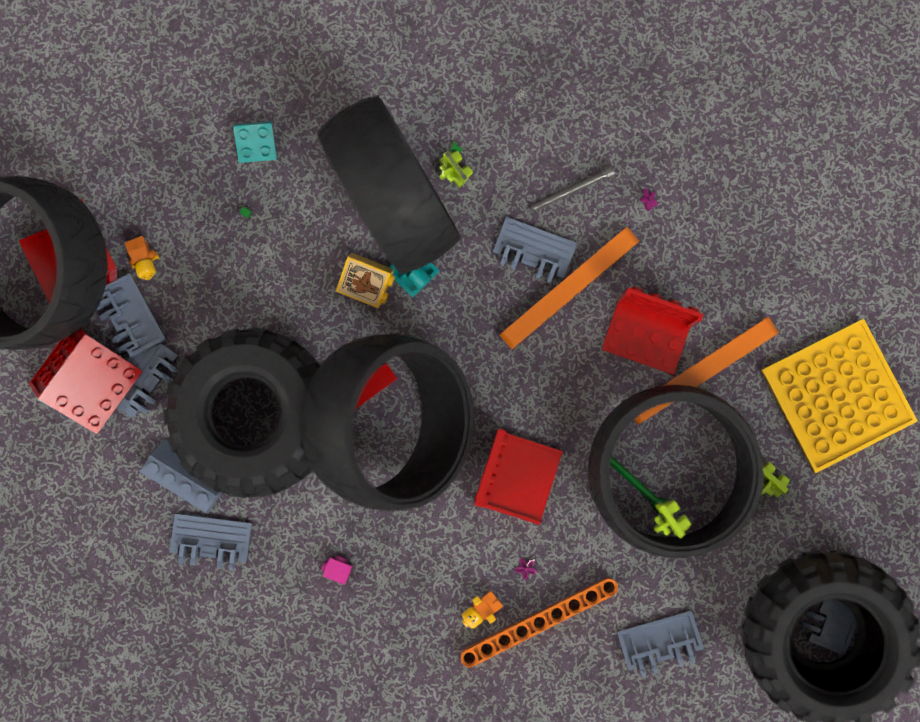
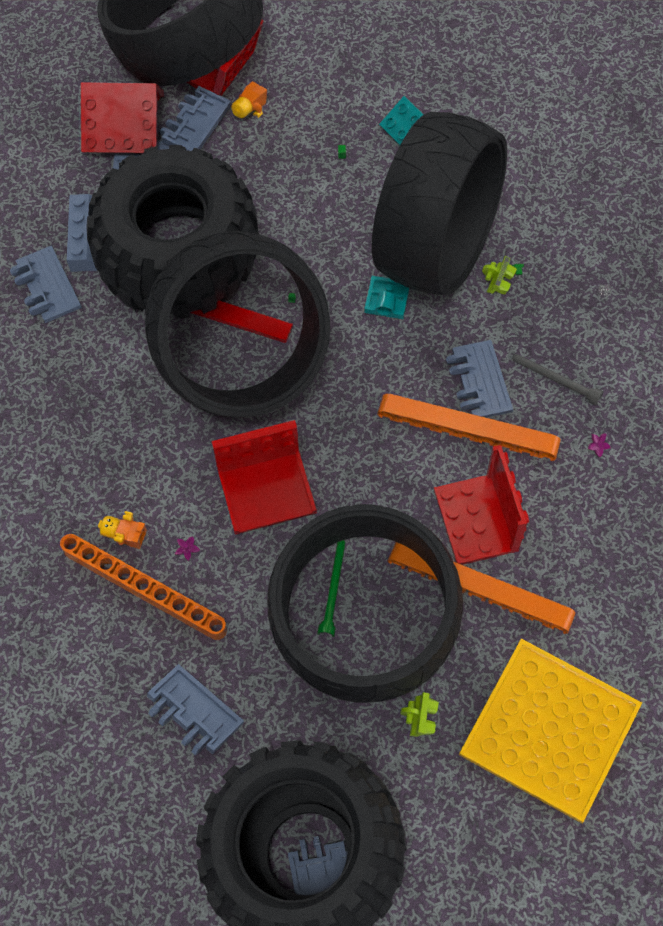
camera: 60 degrees right, 20 degrees down
(337, 569) = (83, 392): dark pink brick -> none
(365, 280) = (351, 263): brick -> none
(678, 525) = (310, 616): lime hips -> none

